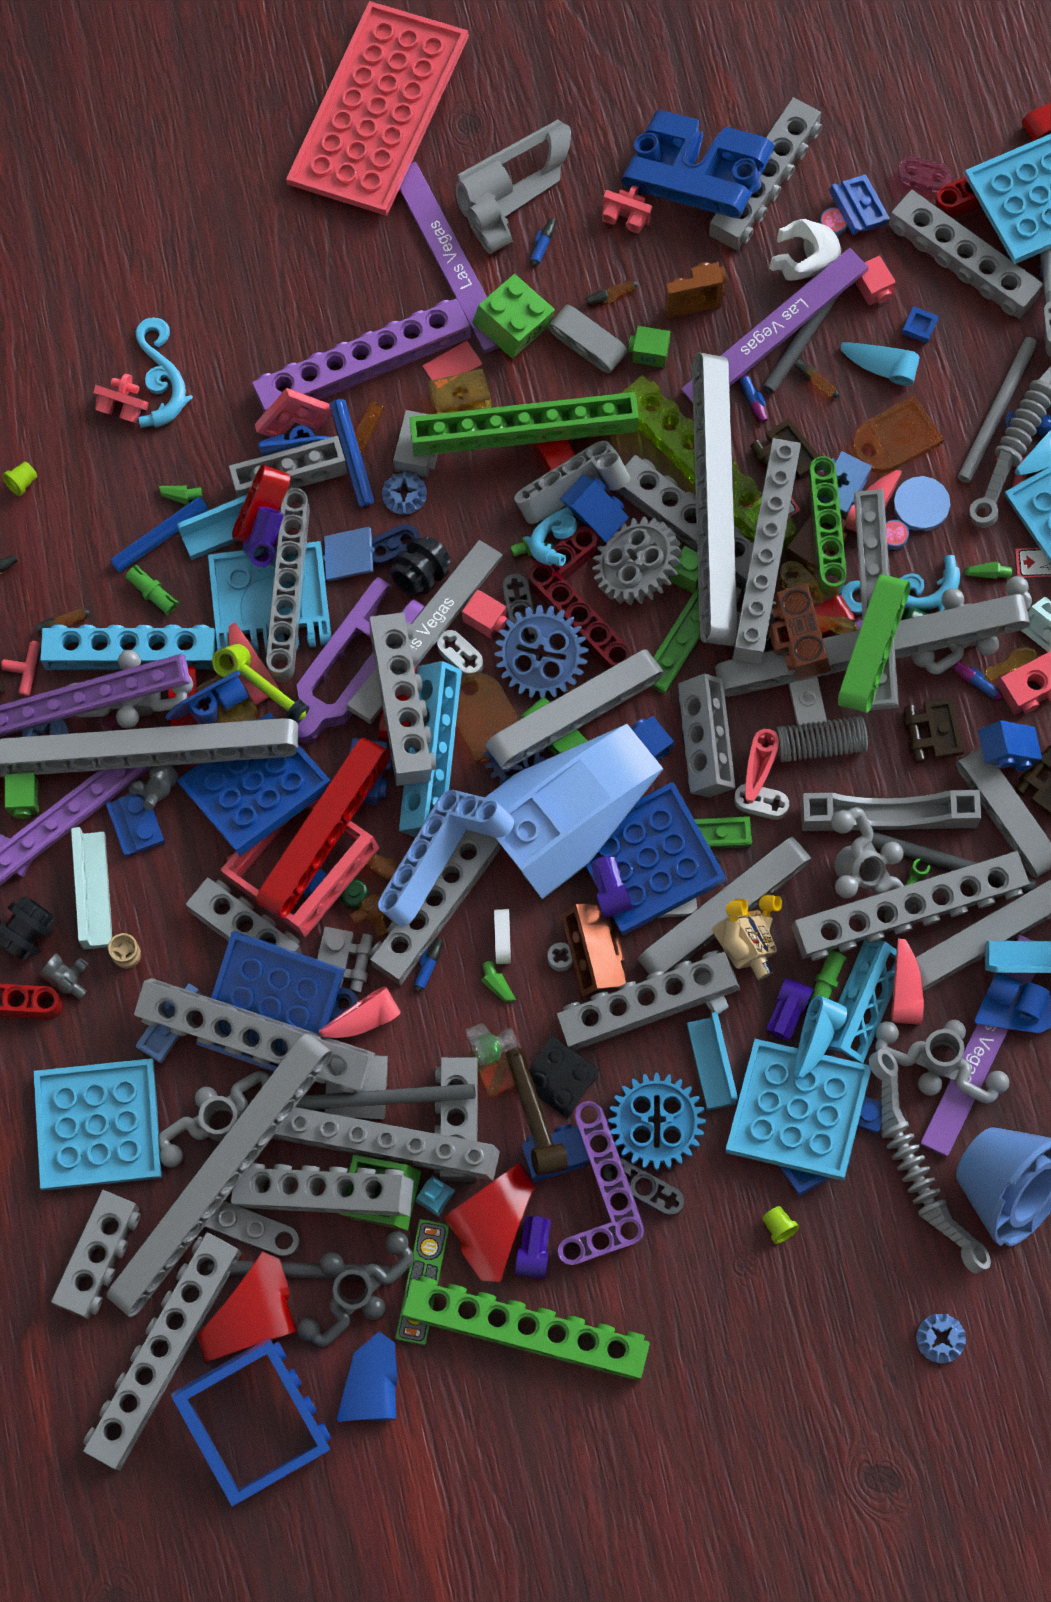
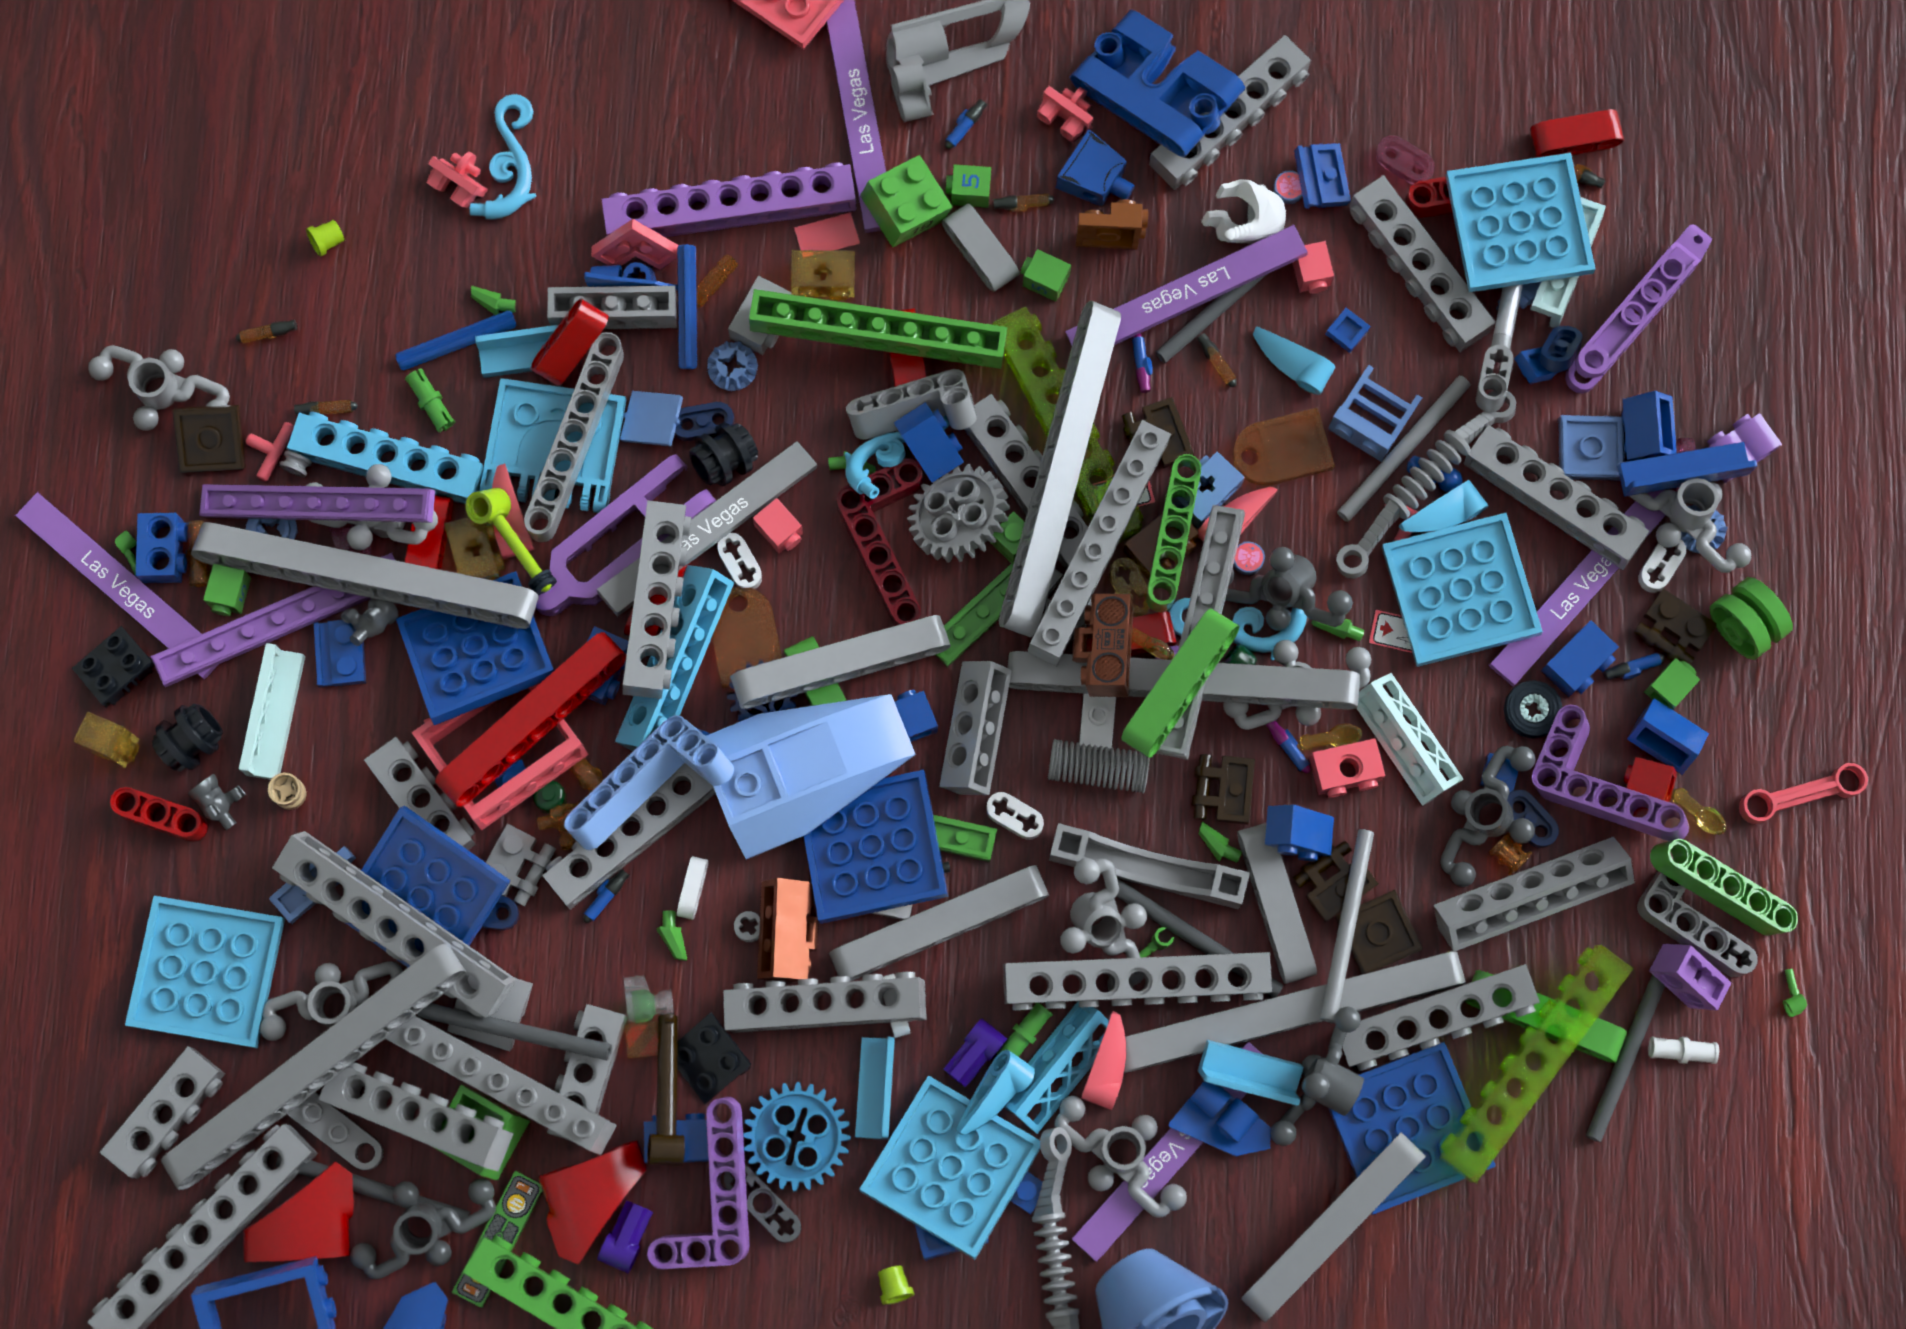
camera: 10 degrees right, 5 degrees up
(50, 673) = (295, 463): none -> light grey bush
(226, 691) = (472, 539): blue panel -> none
(263, 534) = (562, 375): dark purple piece -> none
(363, 1016) = (522, 933): coral piece -> none
(435, 1196) = (539, 1149): medium azure piece -> none
(524, 593) = (828, 514): dark grey beam -> none
(546, 626) = (813, 612): medium blue gear -> none
(563, 289) = (969, 185): none -> bright green brick
(612, 893) = (820, 879): dark purple piece -> none
(665, 251) = (1094, 172): none -> blue torso
(747, 934) = (952, 963): tan torso -> none
(760, 761) = (1023, 775): coral piece -> none
(921, 503) = (1289, 526): light blue tile -> none
(942, 777) = (1218, 843): none -> bright green bar
(953, 550) = (1296, 593): none -> dark grey wheel
(958, 404) = (1361, 431): none -> medium blue plate

